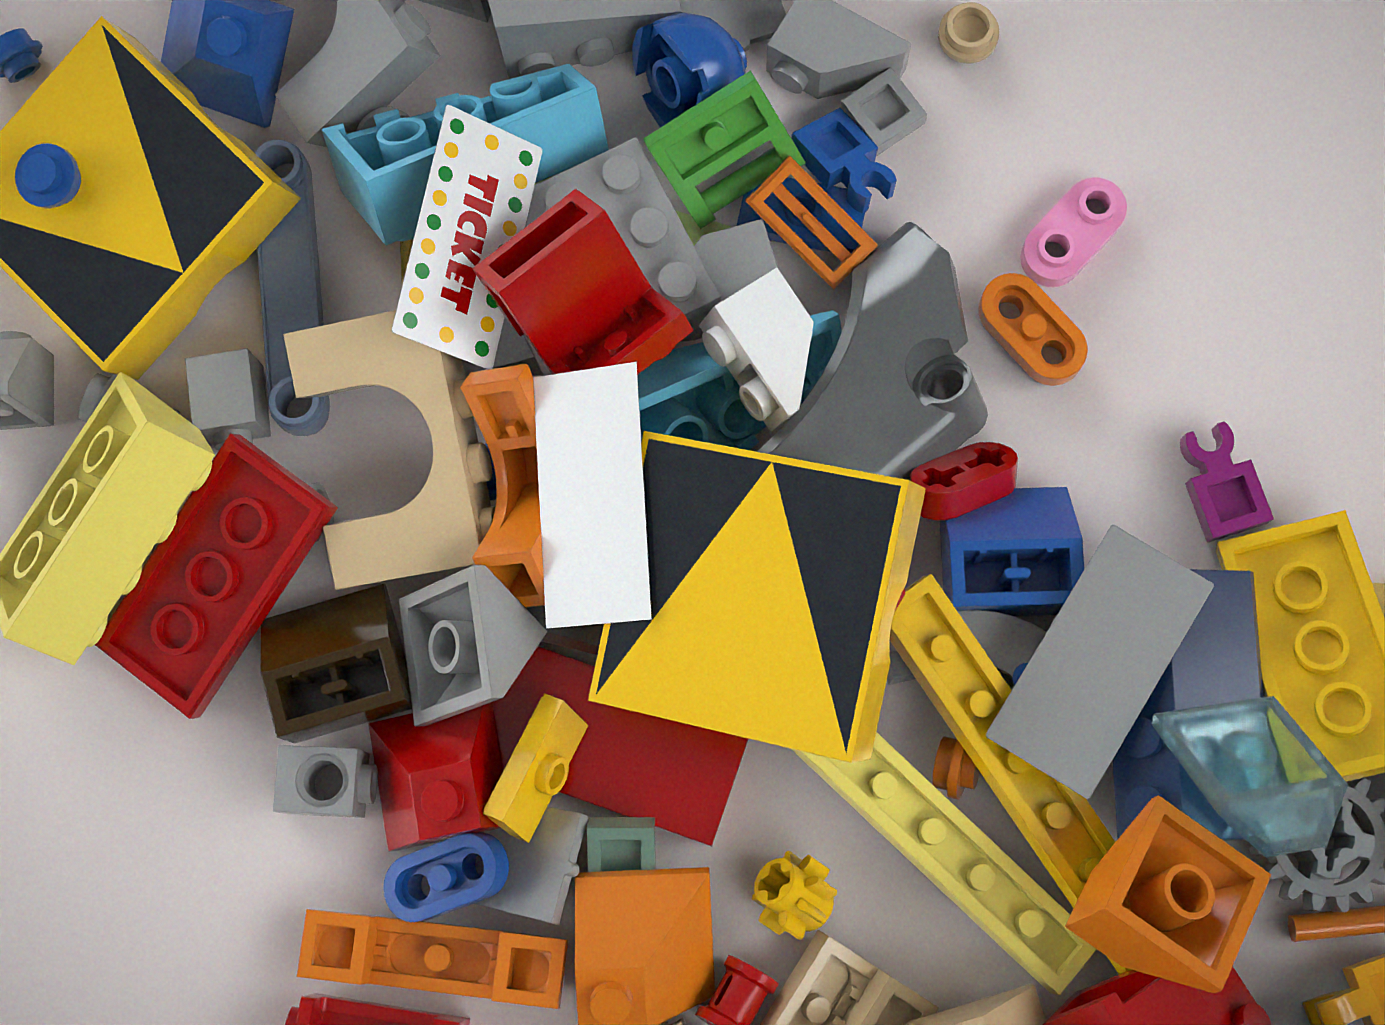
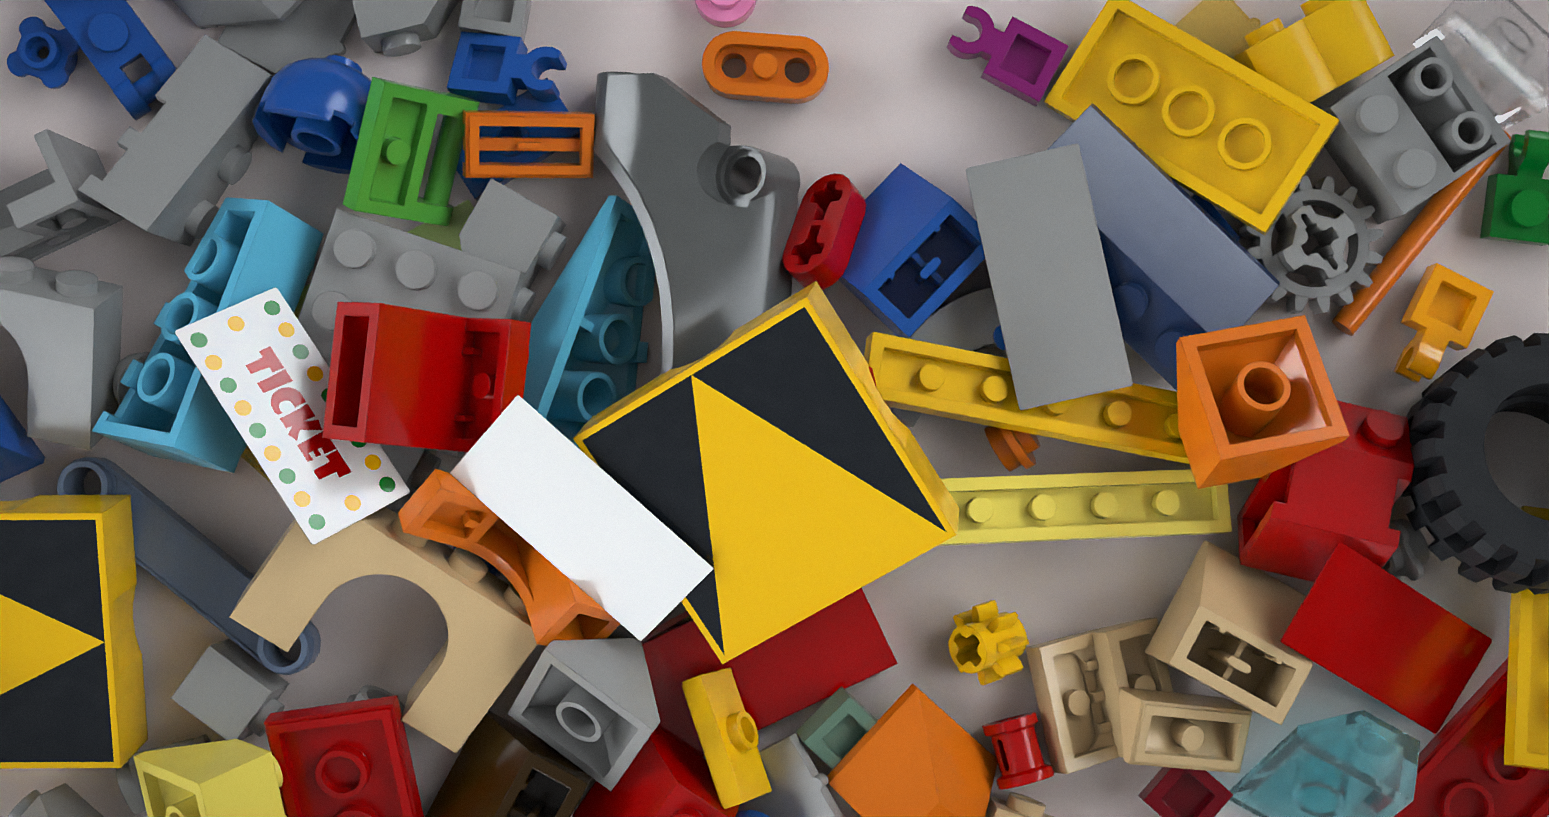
camera: 45 degrees left, 10 degrees up
(764, 344) = (591, 277): white slope -> none
(1257, 772) = (1229, 254): clear light blue slope -> none

